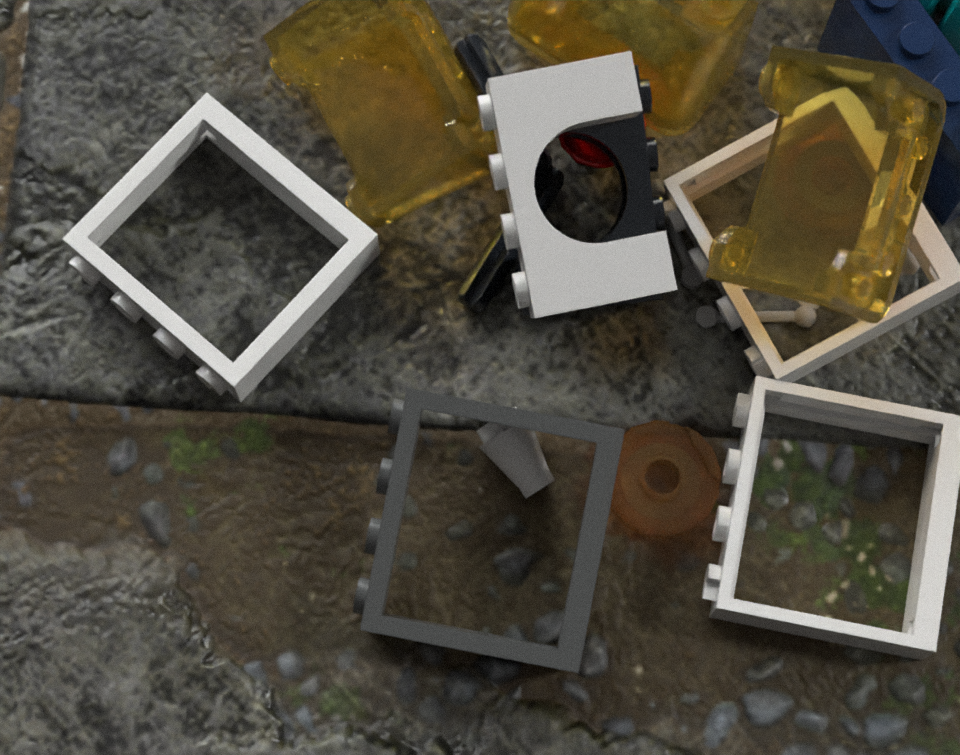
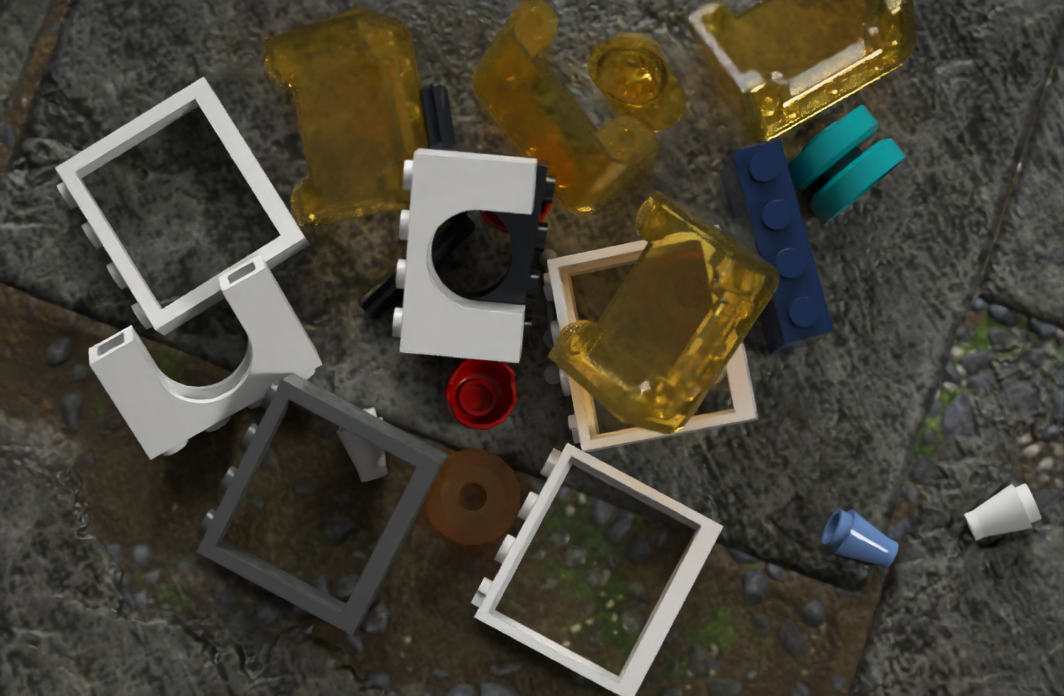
camera: 15 degrees right, 10 degrees up
(377, 366) = (170, 413): none -> white arch
(634, 351) = (480, 393): none -> red hair

